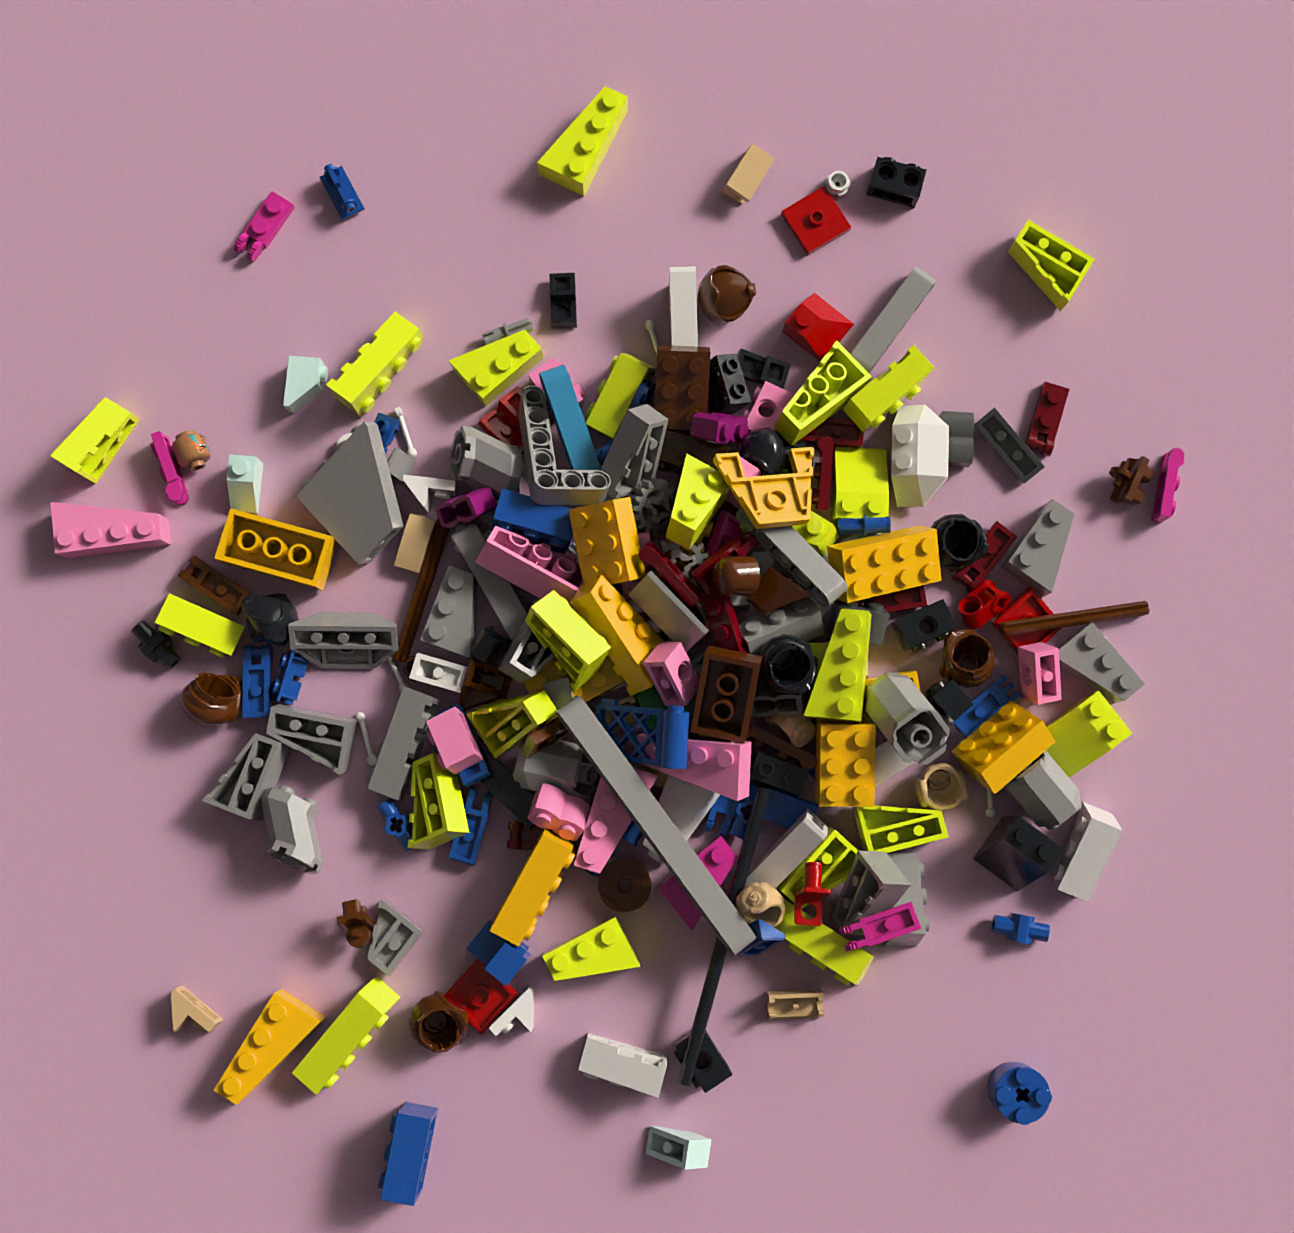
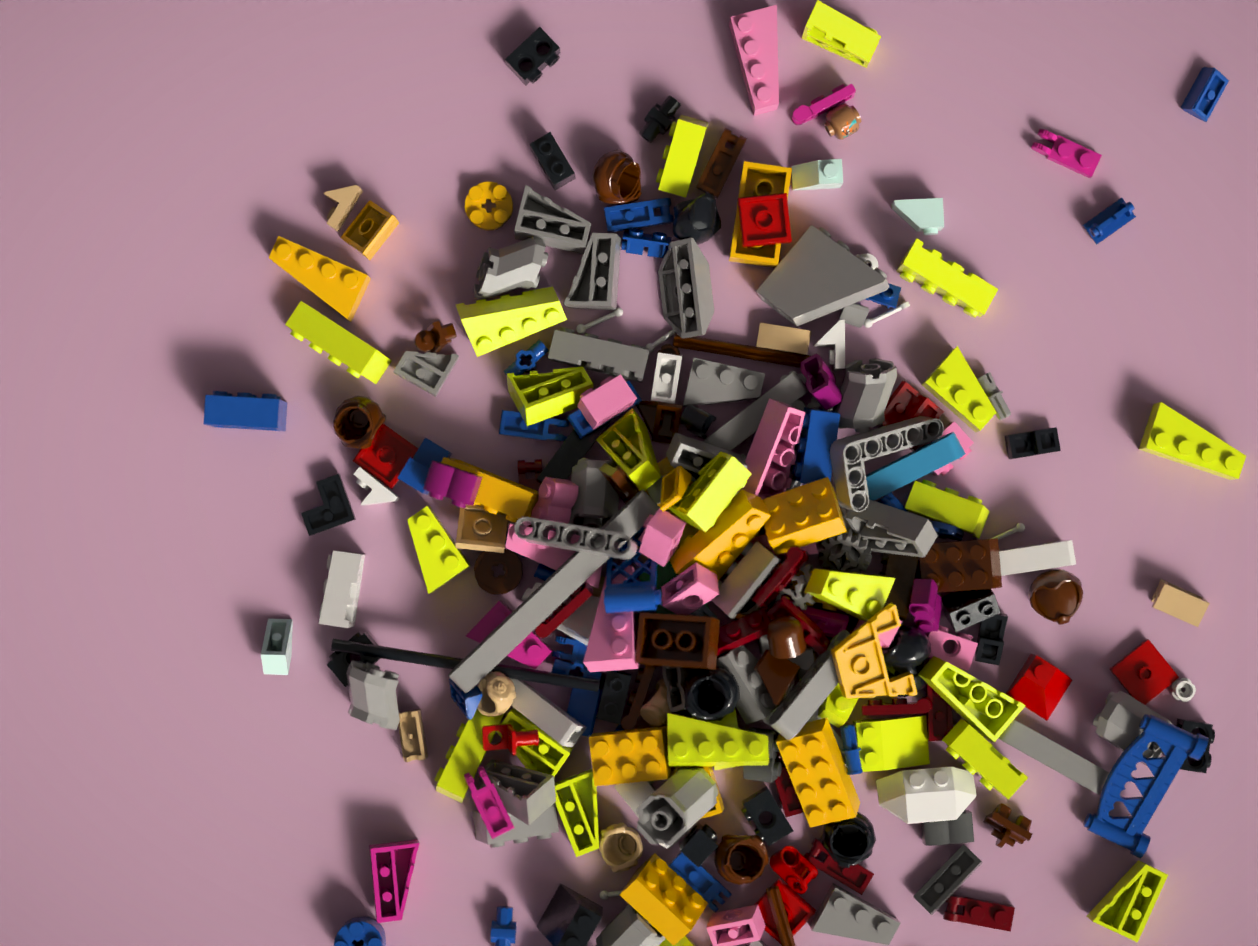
camera: 85 degrees right, 5 degrees up
(57, 780) = (528, 53): none -> black brick
(181, 768) = (552, 161): none -> black brick
(204, 845) = (479, 216): none -> yellow plate
(224, 81) = (1205, 93): none -> blue slope
(226, 982) = (370, 229): none -> yellow slope
(281, 543) = (764, 220): none -> red plate
(347, 837) = (509, 318): none -> neon yellow wedge
(520, 924) = (452, 483): none -> magenta brick
(534, 1061) = (336, 507): none -> black plate
(557, 676) = (674, 486): none -> yellow slope
(576, 898) = (481, 530): none -> tan plate
(590, 802) = (565, 532): none -> light grey beam
(609, 697) = (661, 536): none -> bright pink brick
(678, 815) = (564, 610): none -> dark red plate
(745, 1044) = (373, 694): none -> light grey brick
(871, 236) = (1121, 722): none -> light grey brick
(945, 1046) = (391, 876): none -> dark pink wedge
(965, 378) = (1005, 830): none -> reddish brown hips
(976, 255) = (1176, 746): none -> blue piece

